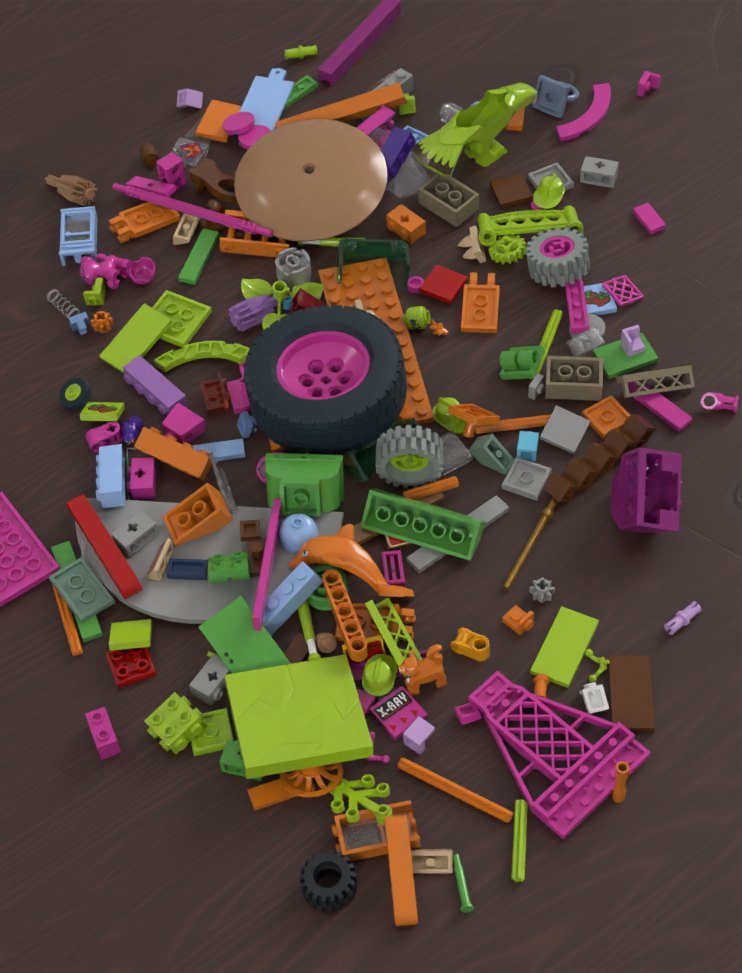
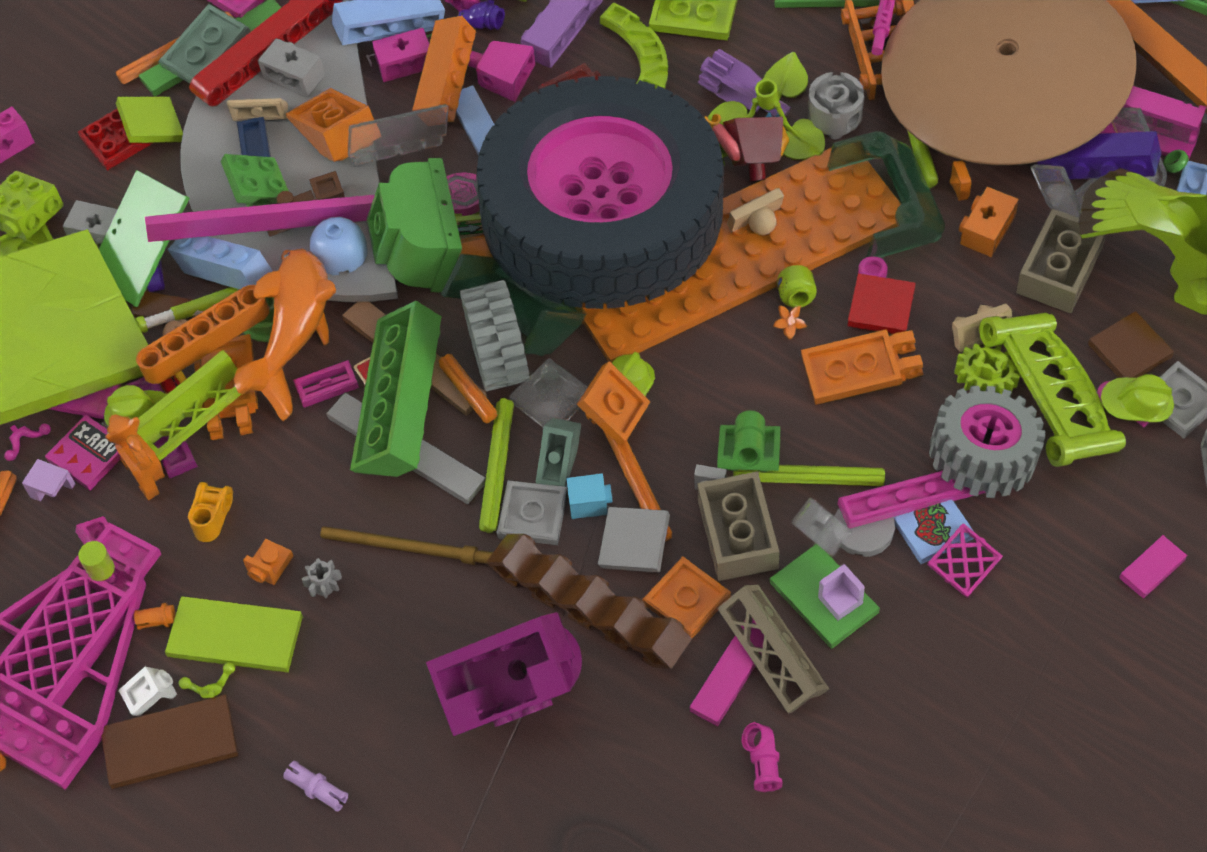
camera: 75 degrees right, 5 degrees up
(371, 228) = (960, 180): none -> orange tile
(491, 489) = (496, 466): none -> lime axle
(503, 699) = (96, 561): none -> lime piece

